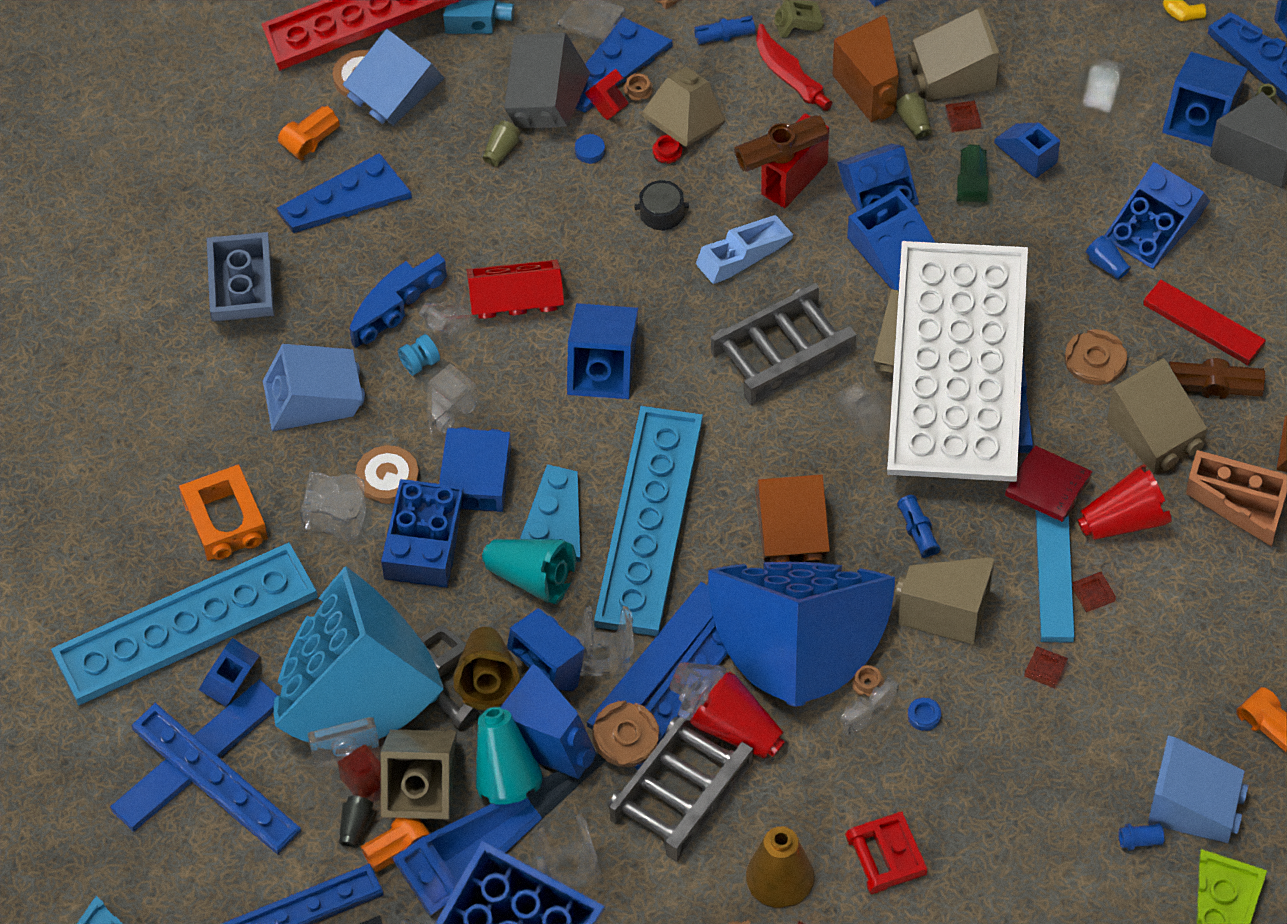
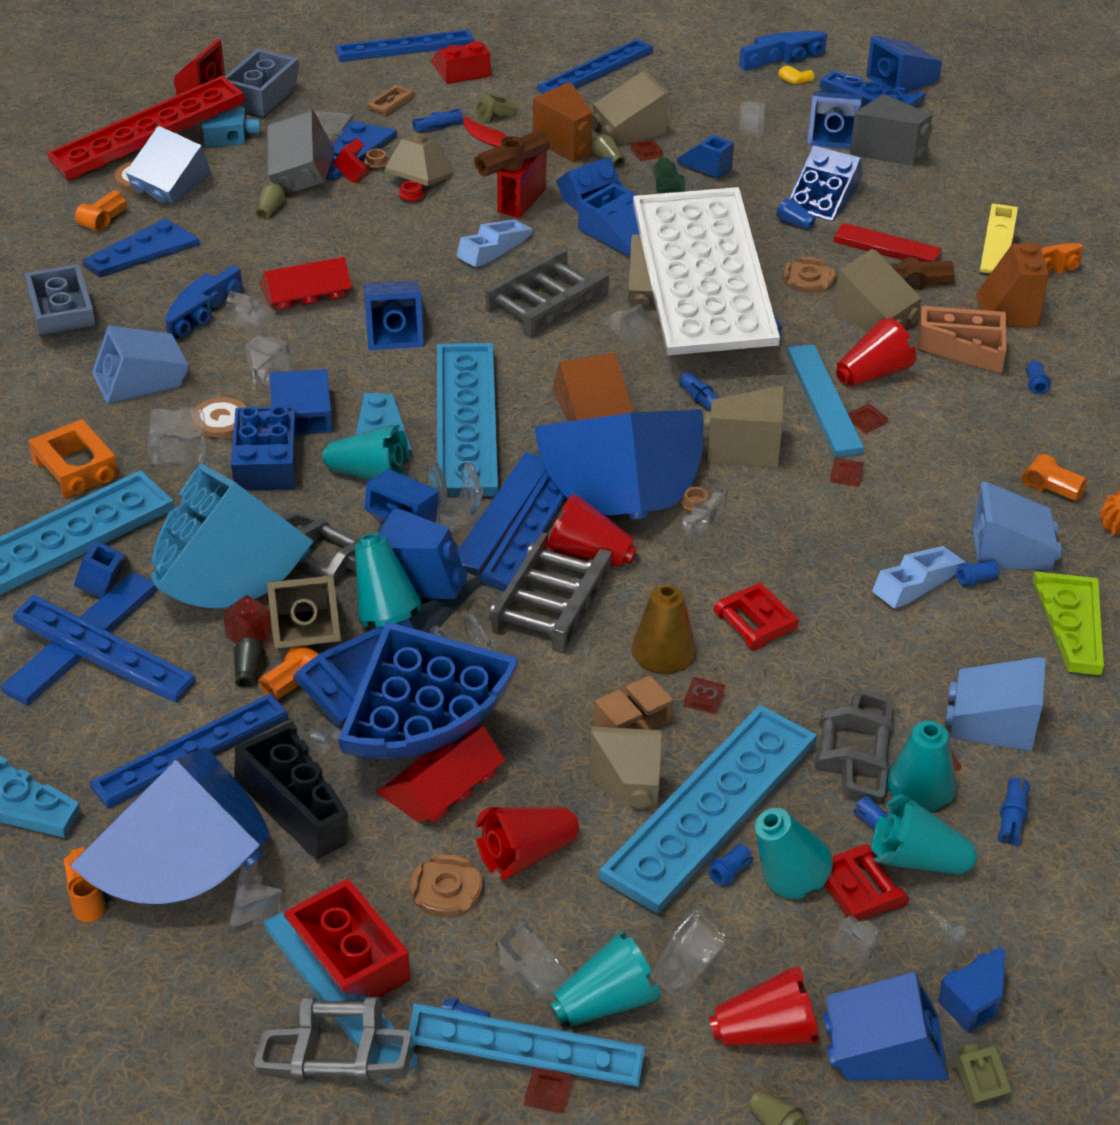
camera: 15 degrees left, 15 degrees down
(336, 742) = (219, 593): clear tile -> none
(419, 354) = (233, 334): dark azure wheel -> none
(485, 670) = (348, 520): pearl gold cone -> none
(589, 148) = (345, 199): blue tile -> none
(625, 733) = (490, 559): medium nougat tile -> none
(661, 205) = (417, 222): piece -> none
(694, 684) = (542, 512): clear slope -> none
(924, 714) = (753, 517): blue tile -> none
(1049, 483) = (804, 349): dark red slope -> none
(1074, 829) = (916, 575): none -> light blue slope

